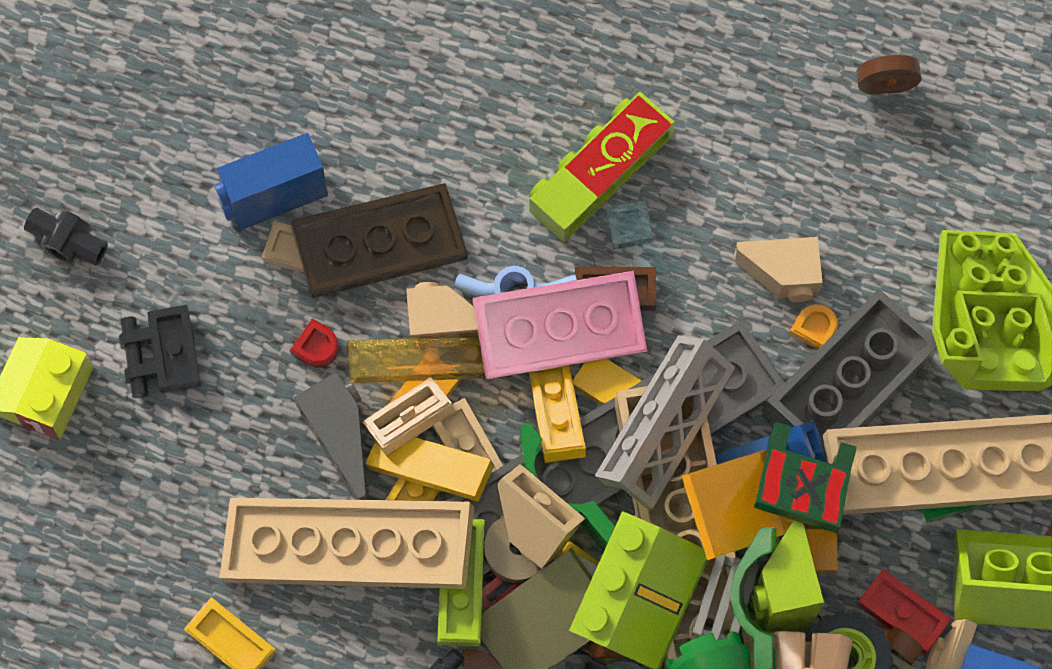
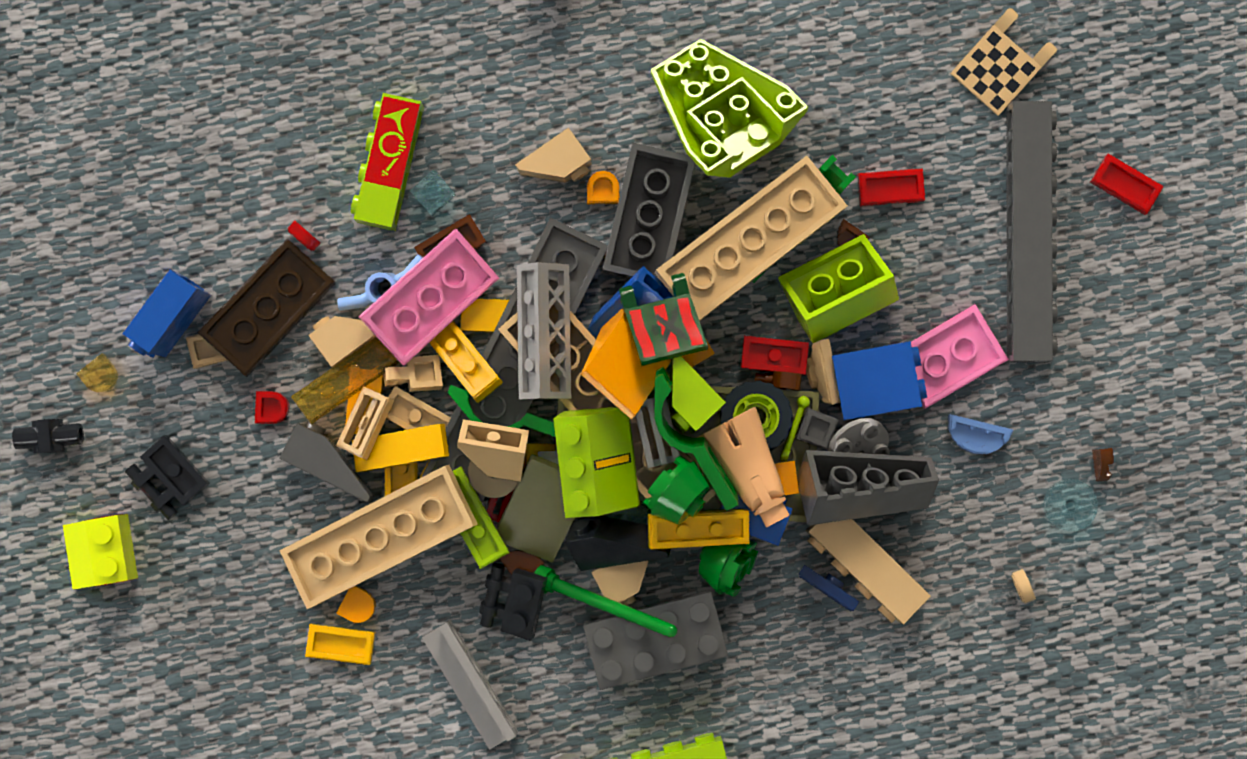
camera: 30 degrees left, 15 degrees up
(159, 207) = (99, 374): none -> clear yellow tile
(275, 609) = (357, 605): none -> light orange tile
(464, 188) = (303, 236): none -> red tile
(499, 400) = (420, 373): none -> tan plate

